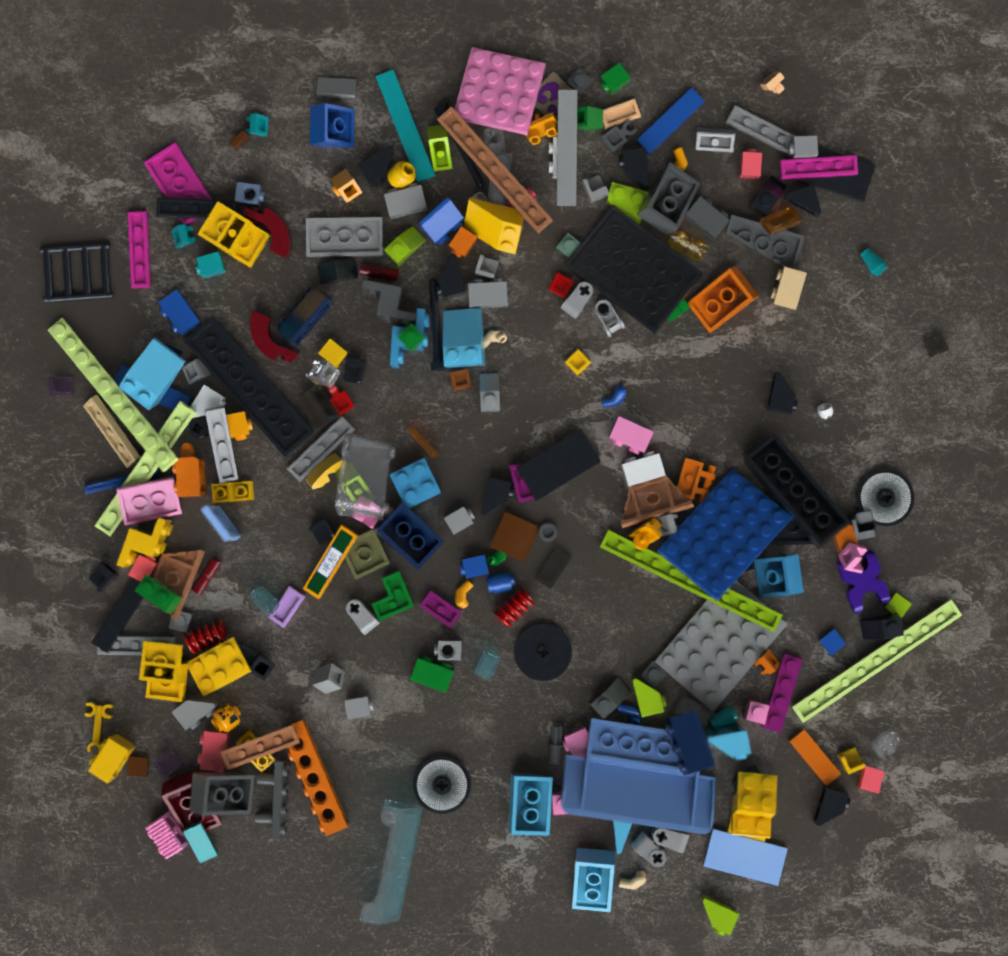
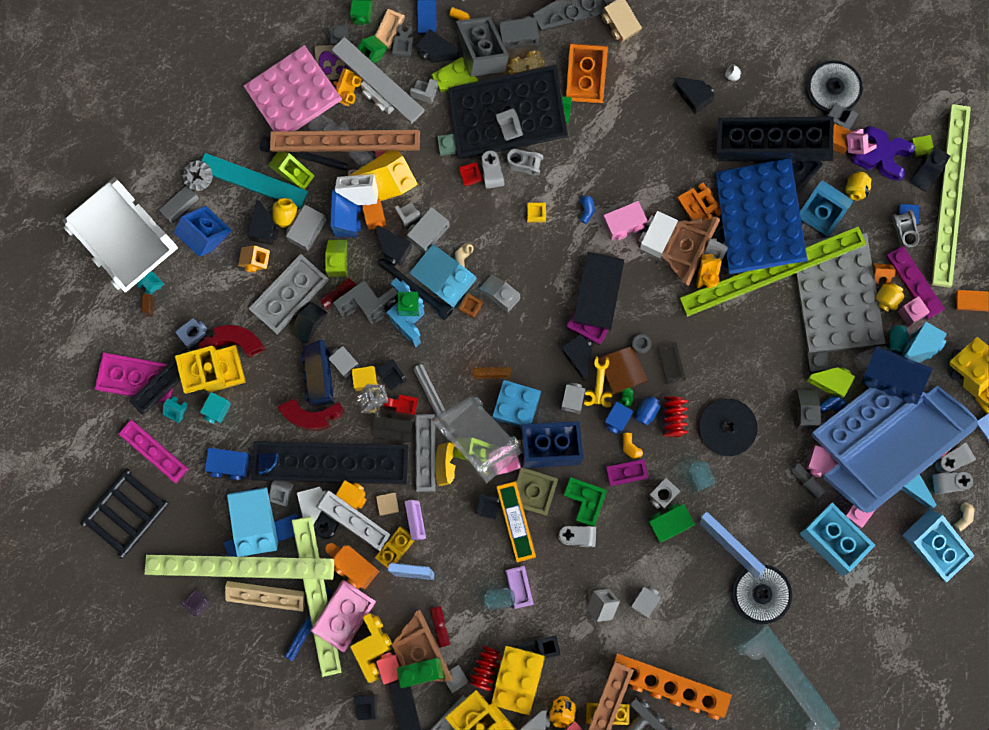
camera: 45 degrees left, 10 degrees down
(206, 341) = (267, 462): none -> clear blue tile
(258, 456) = (387, 504): none -> tan tile
(264, 487) = (415, 520): none -> lavender tile
(270, 69) = (119, 235): none -> white panel
(331, 325) = (343, 361): none -> light grey brick
(369, 409) = (428, 389): none -> light grey axle
(376, 86) = (205, 173): none -> light grey gear
(454, 733) = (736, 549): none -> light blue tile
(467, 215) = (358, 188): none -> white slope
(478, 536) = (598, 397): none -> yellow bar
(623, 281) = (510, 124): none -> light grey panel
(752, 684) = (889, 297): none -> yellow head
(818, 648) = (906, 227): none -> light grey piece
(819, 585) = (858, 186): none -> yellow head

